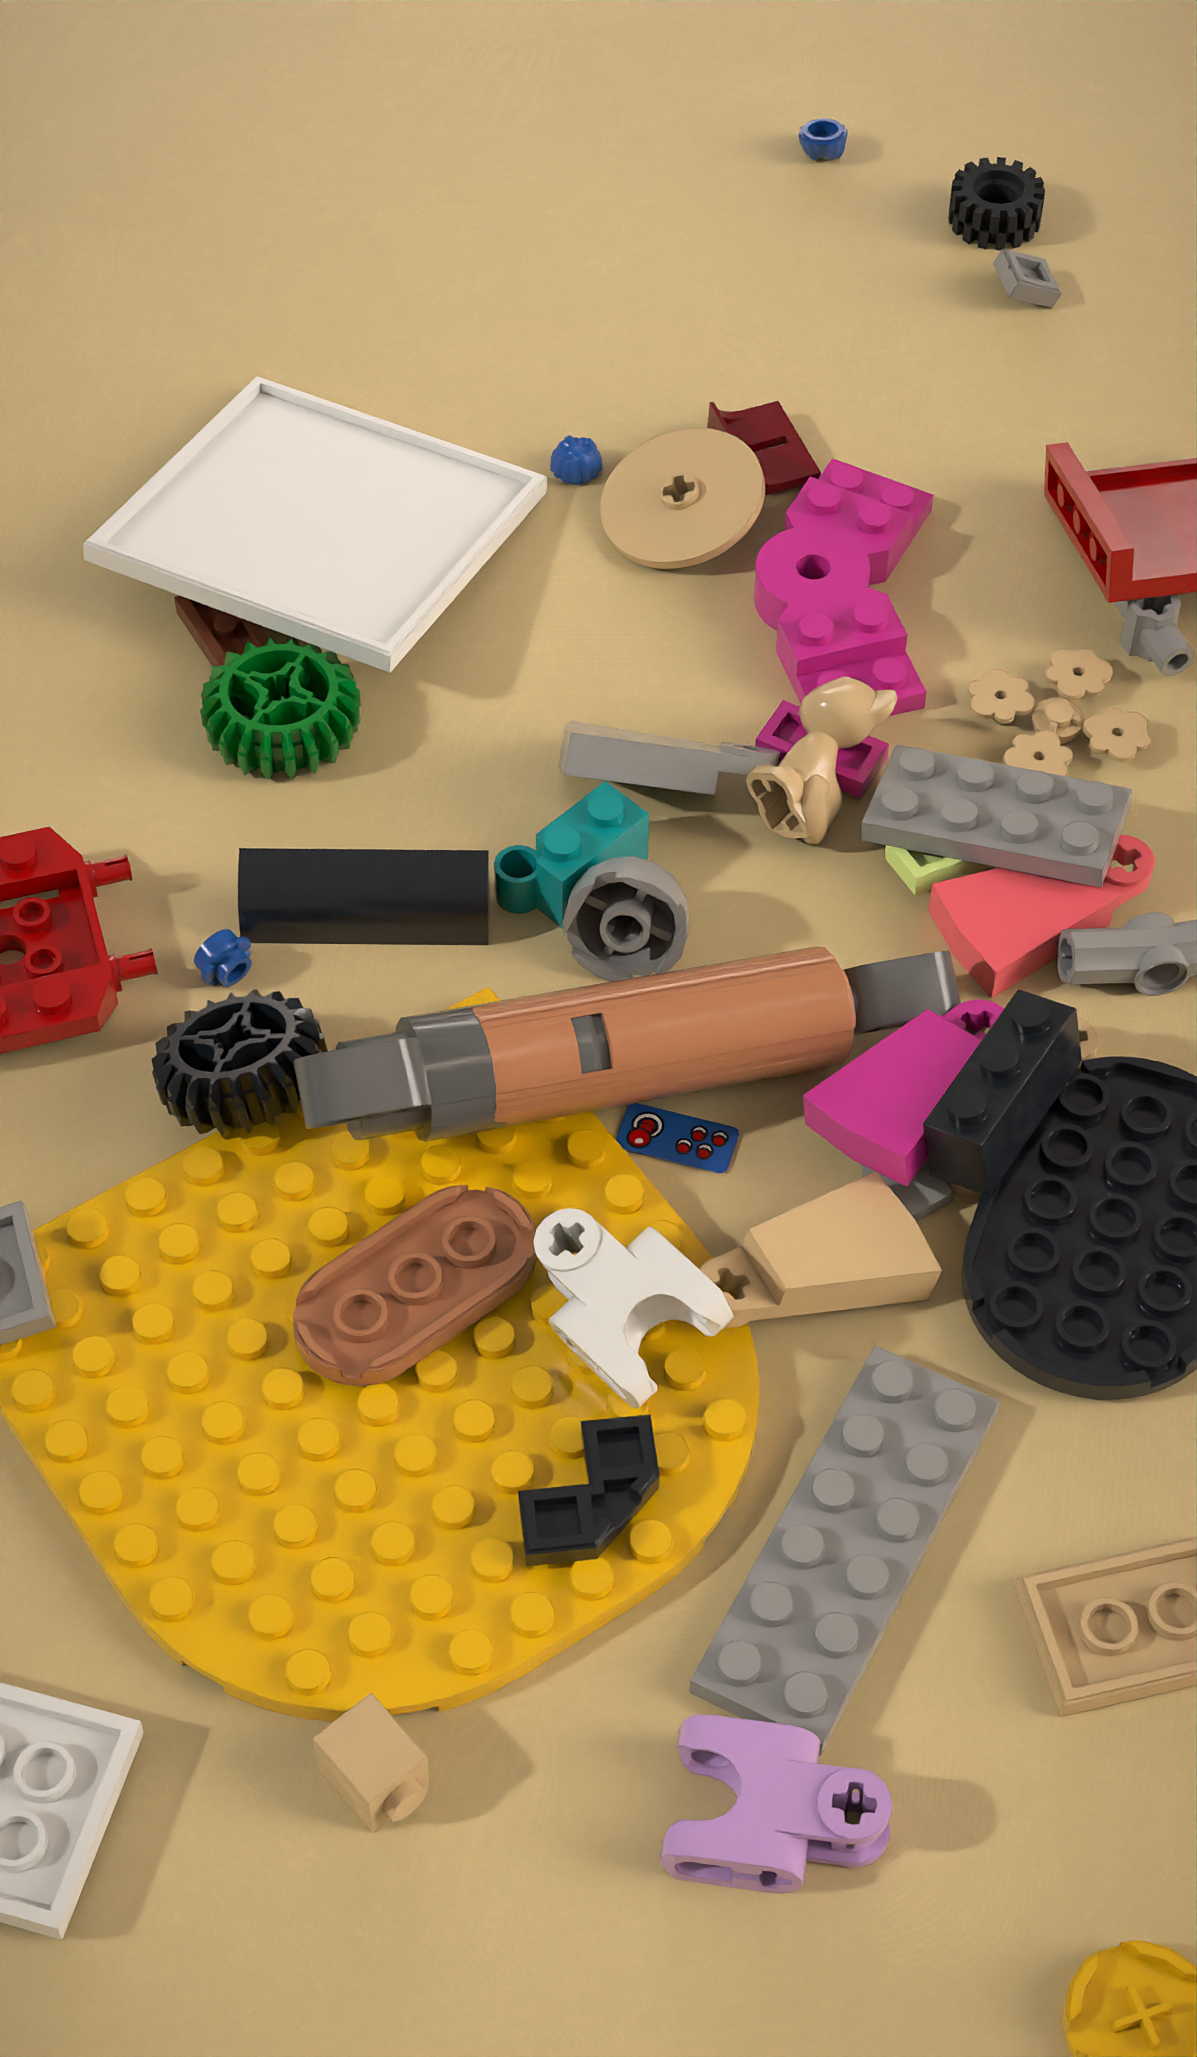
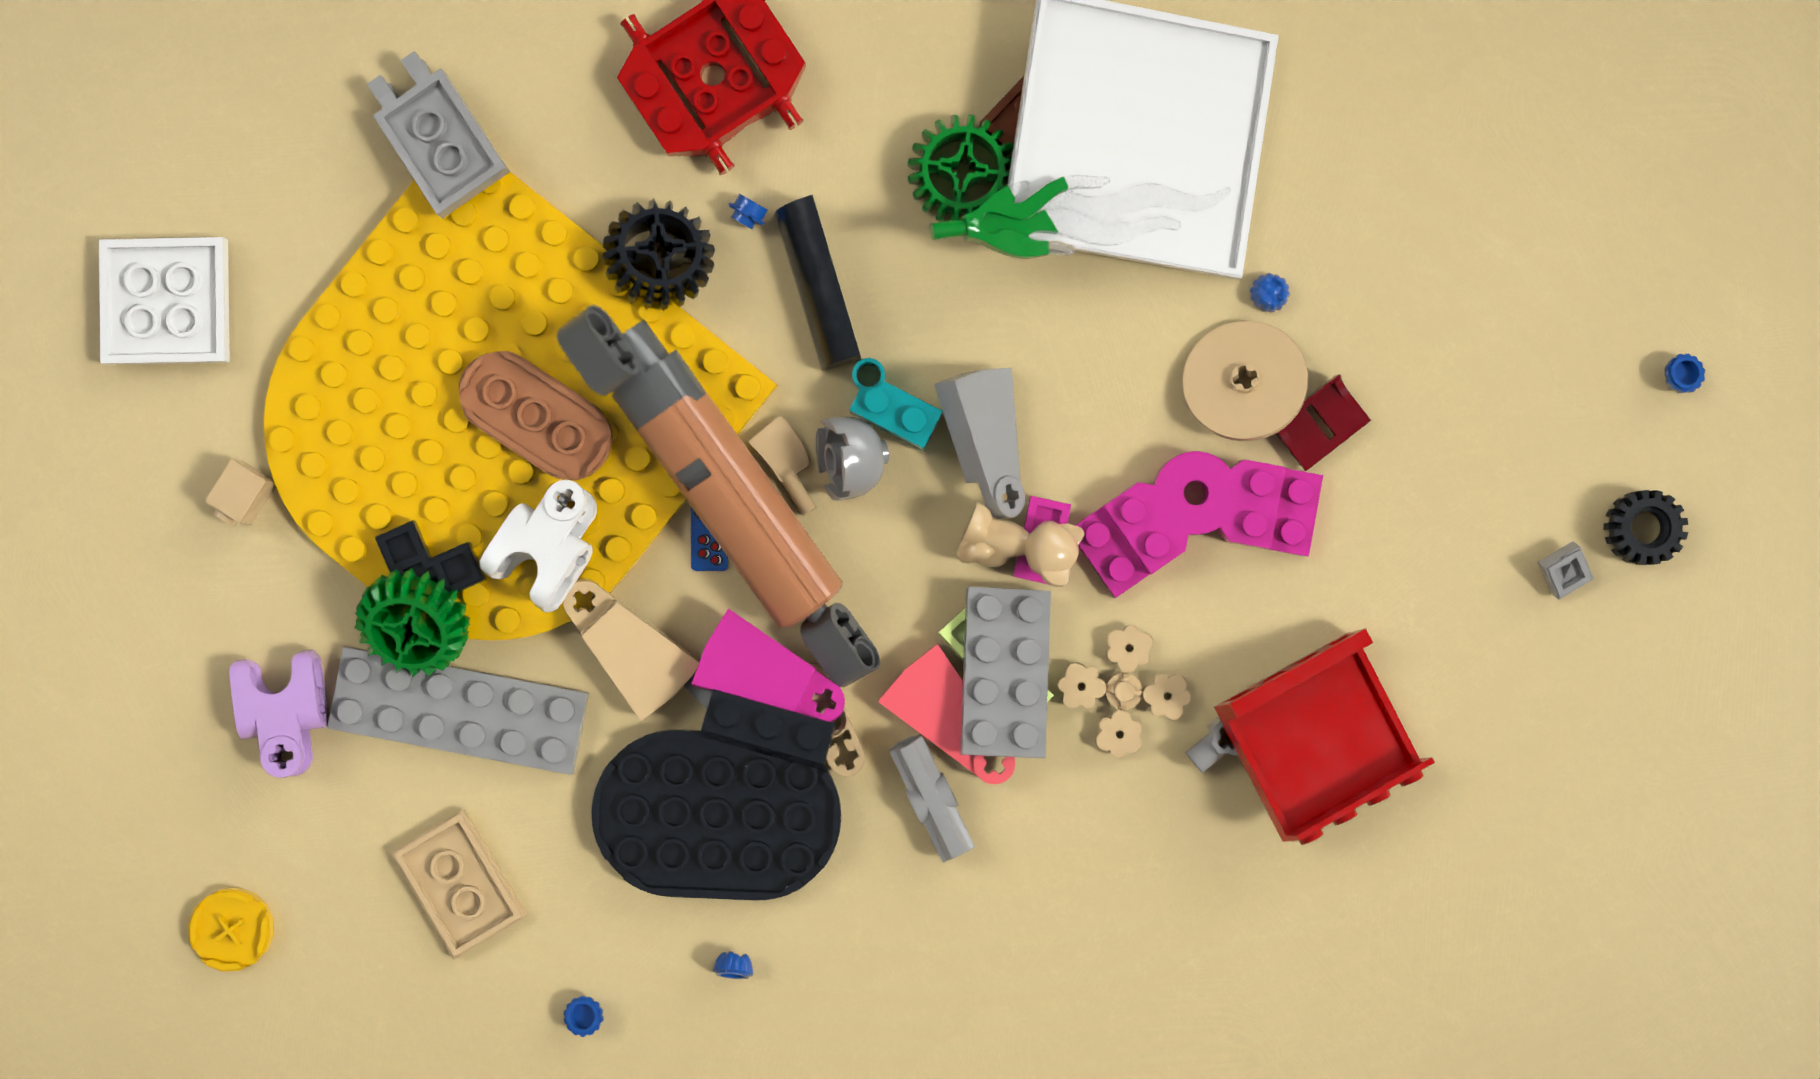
camera: 75 degrees right, 35 degrees up
(379, 634) = (1061, 212): none -> piece
(650, 1531) = (412, 622): none -> green gear

